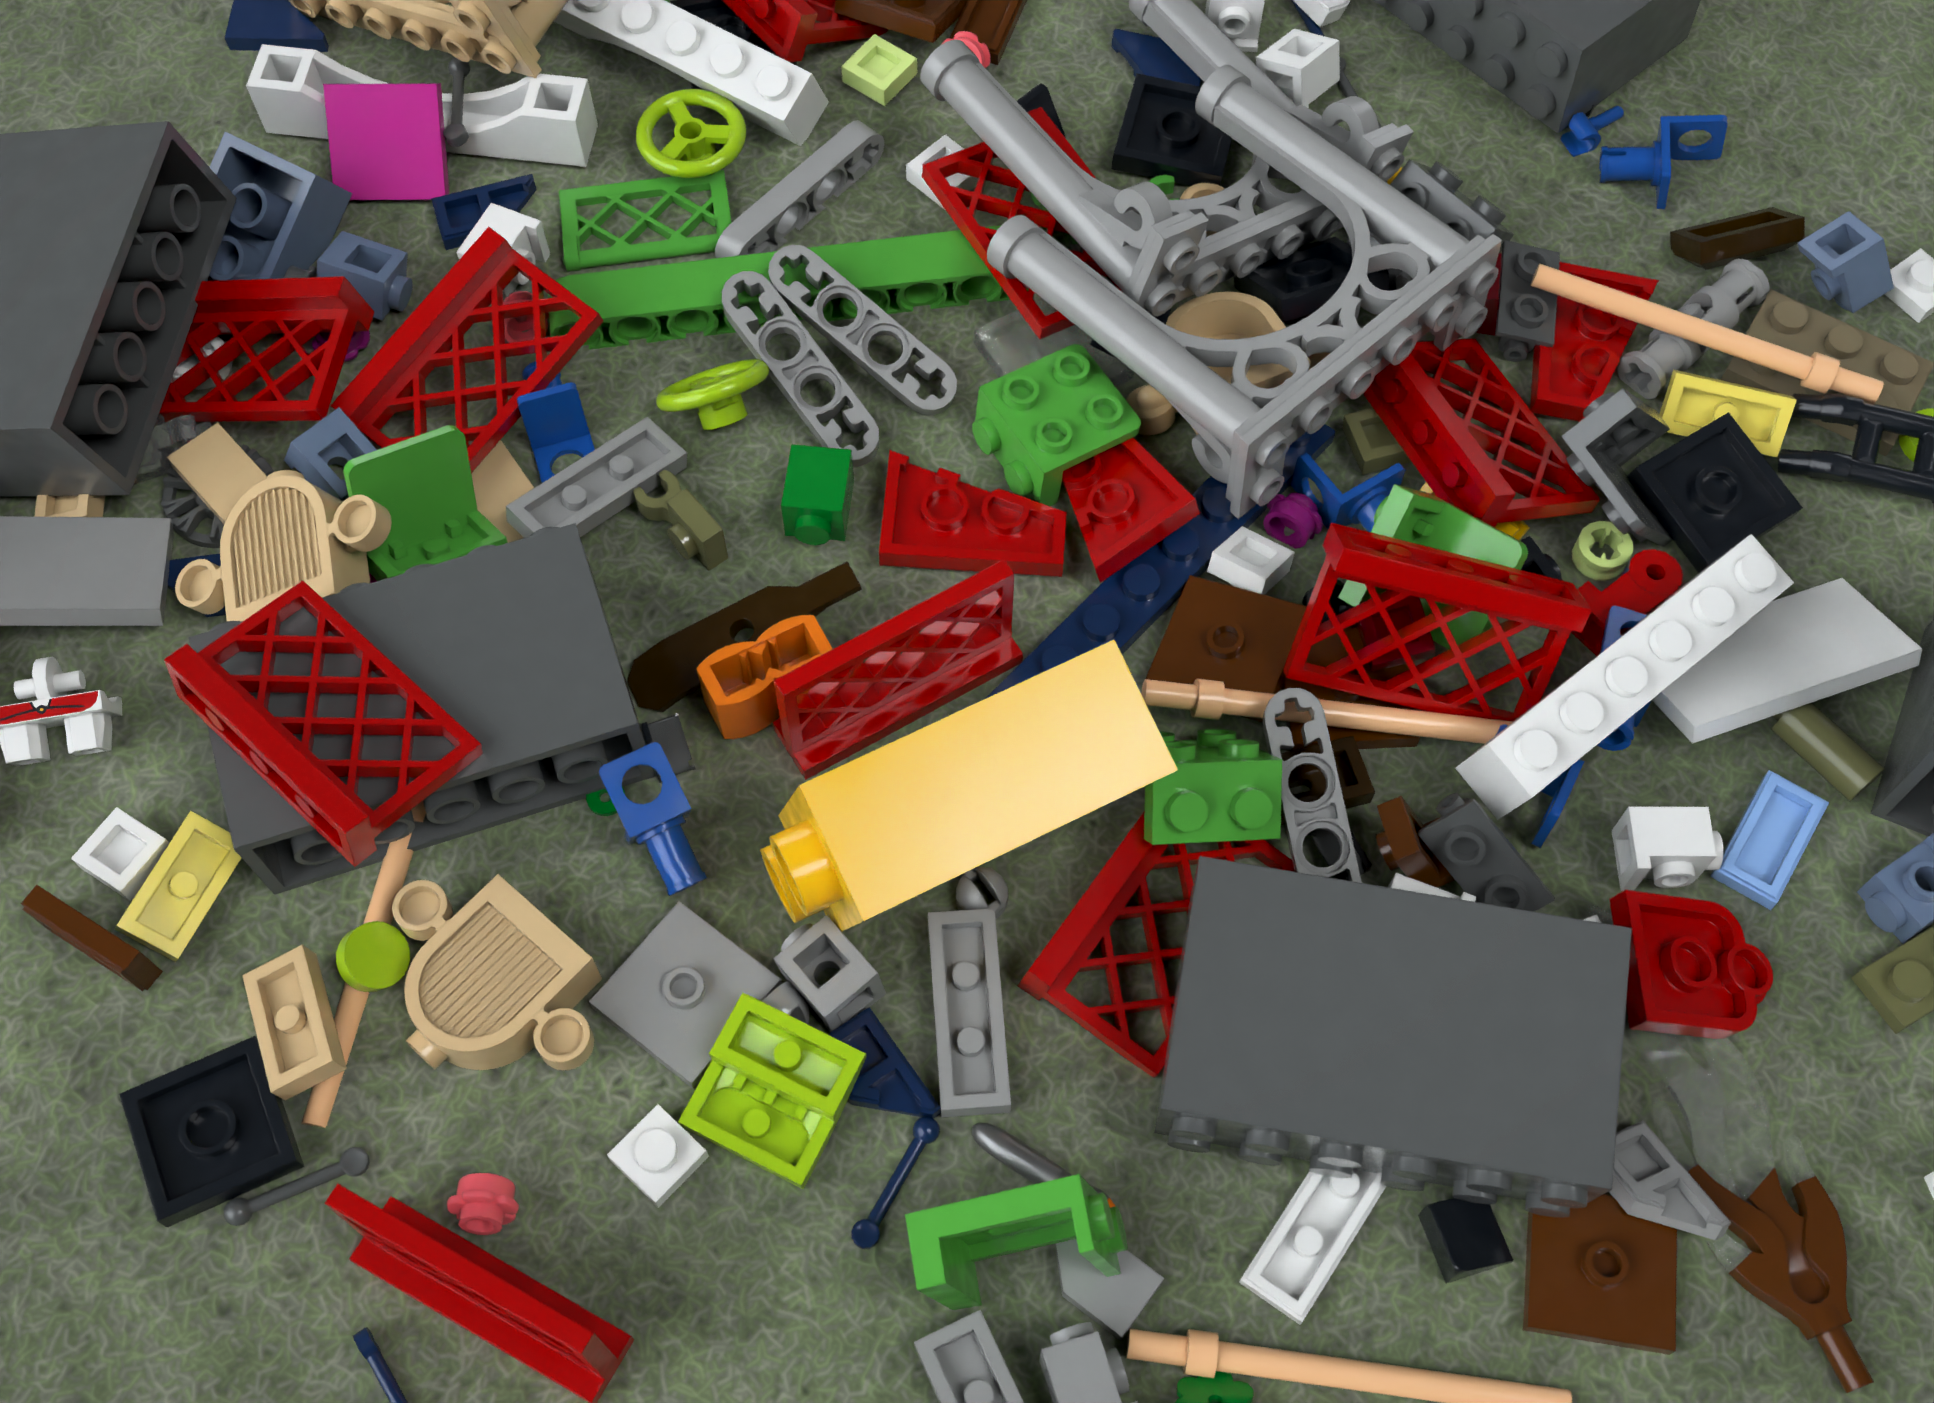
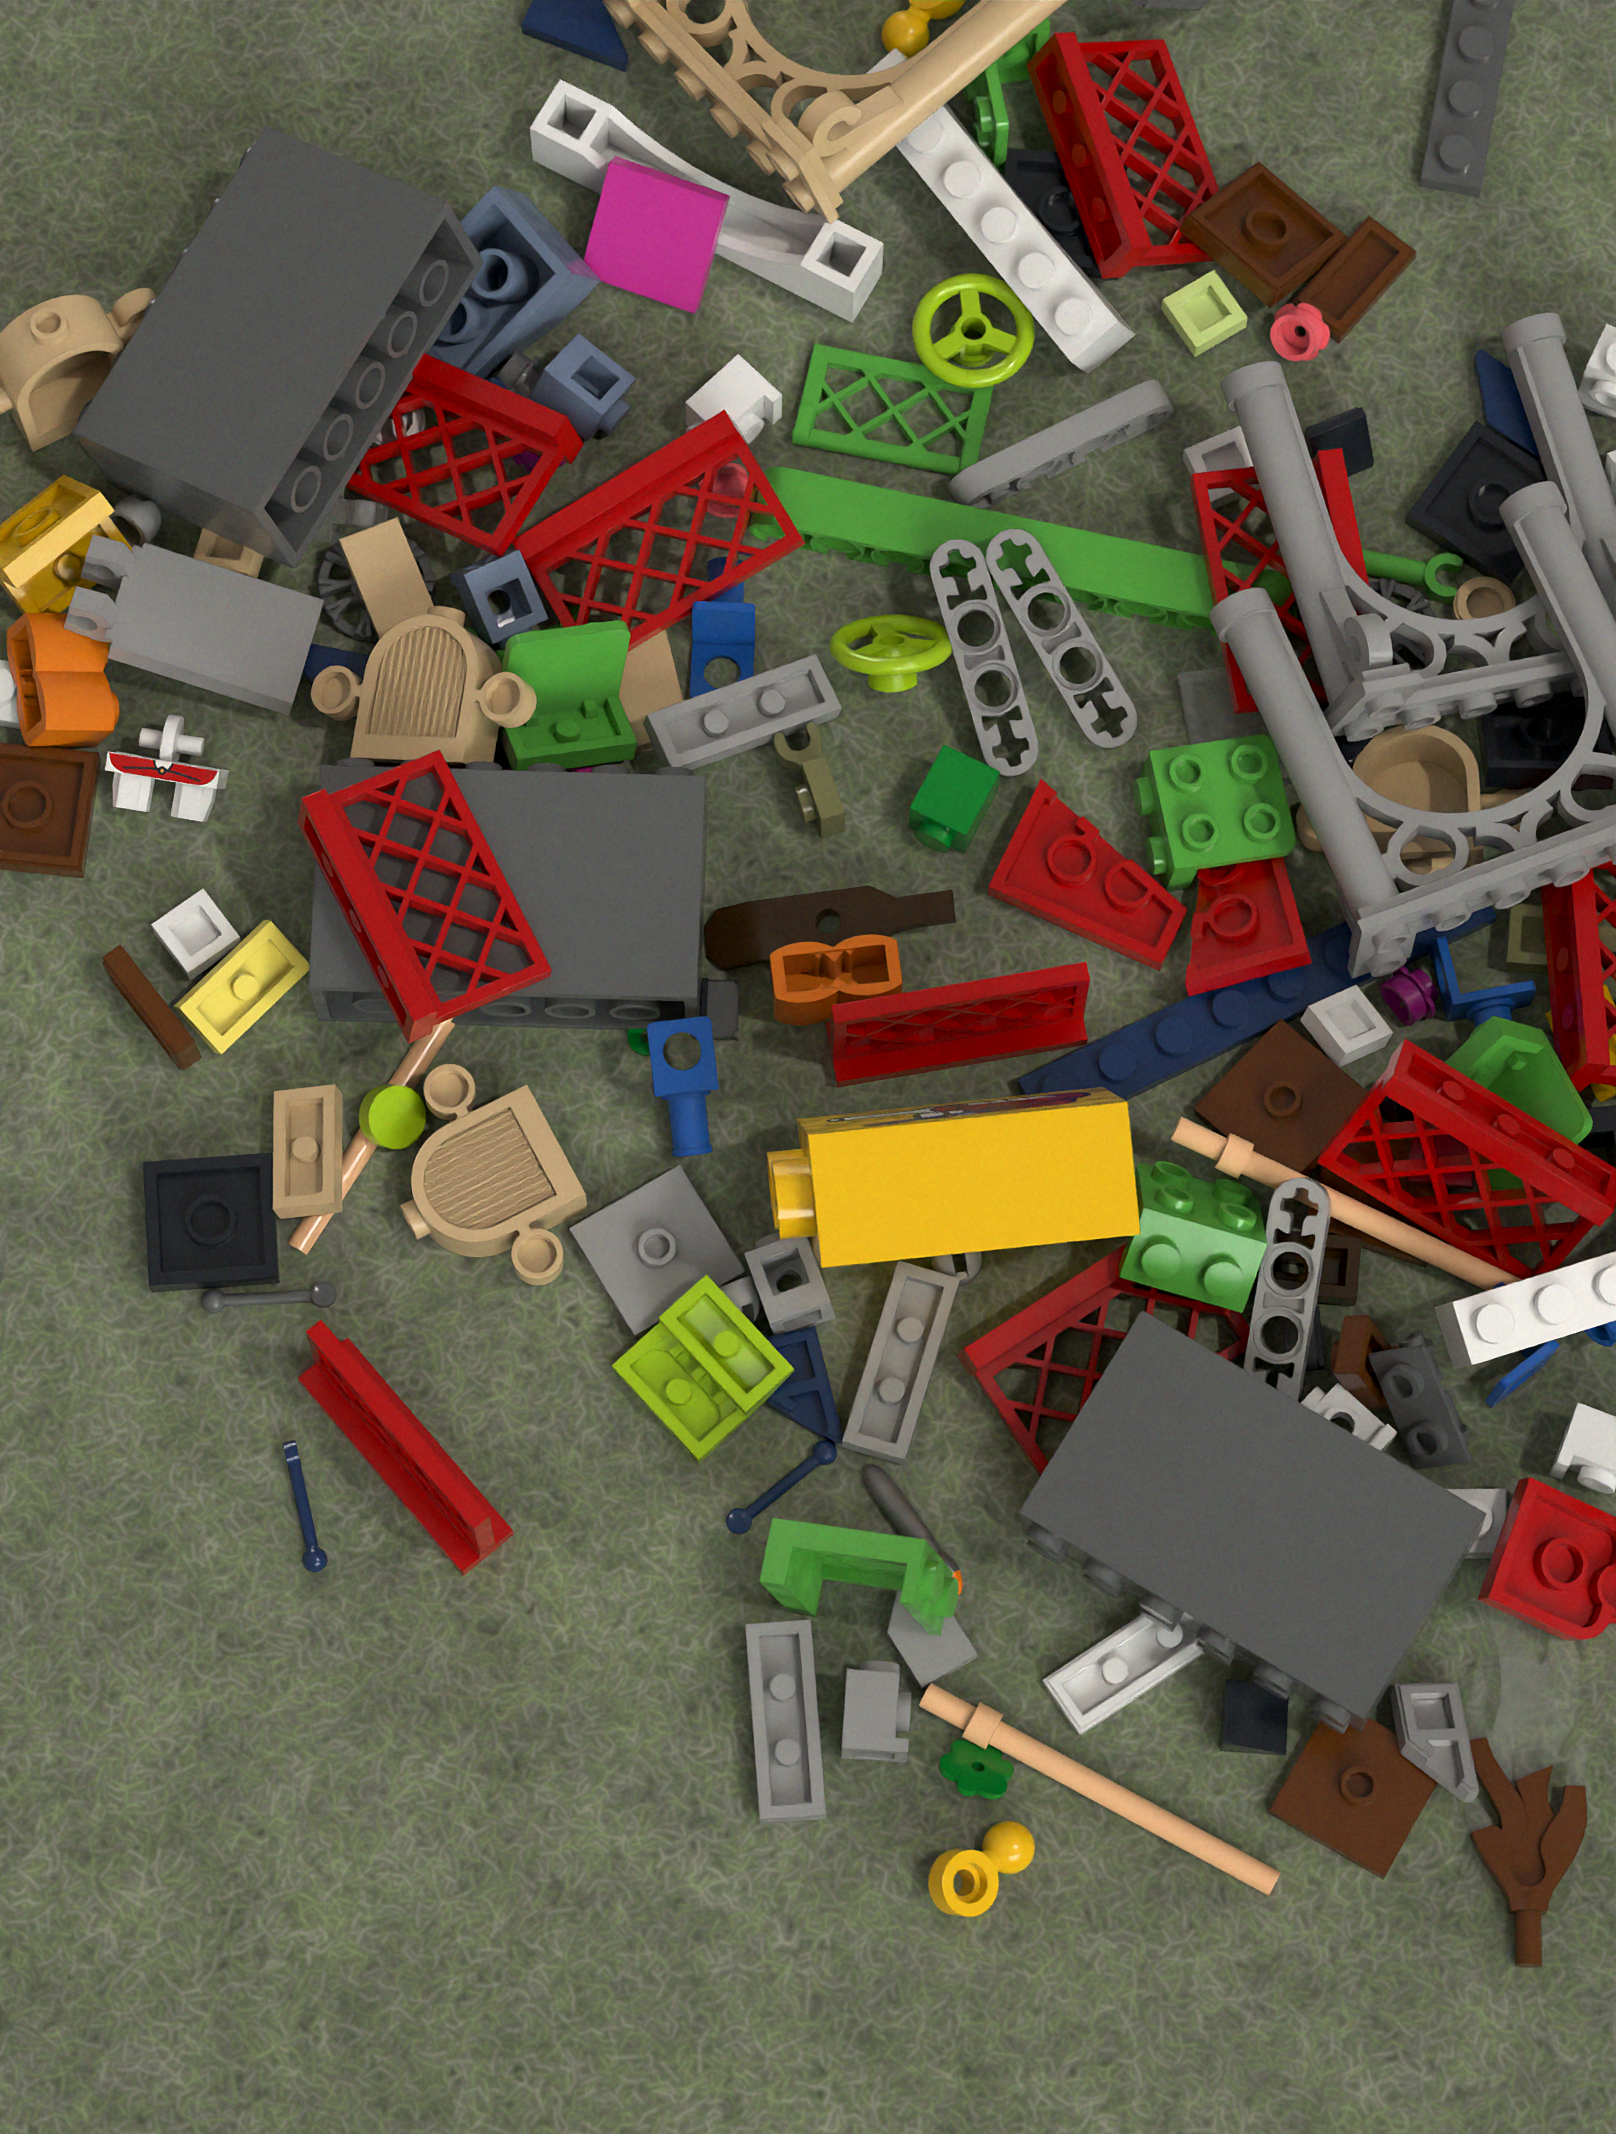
camera: 20 degrees right, 10 degrees up
(455, 132) = (728, 249): dark grey hinge -> none
(461, 210) = (714, 338): dark blue tile -> none
(483, 1203) = (424, 1373): coral plate -> none
(658, 1155) = (584, 1387): white plate -> none

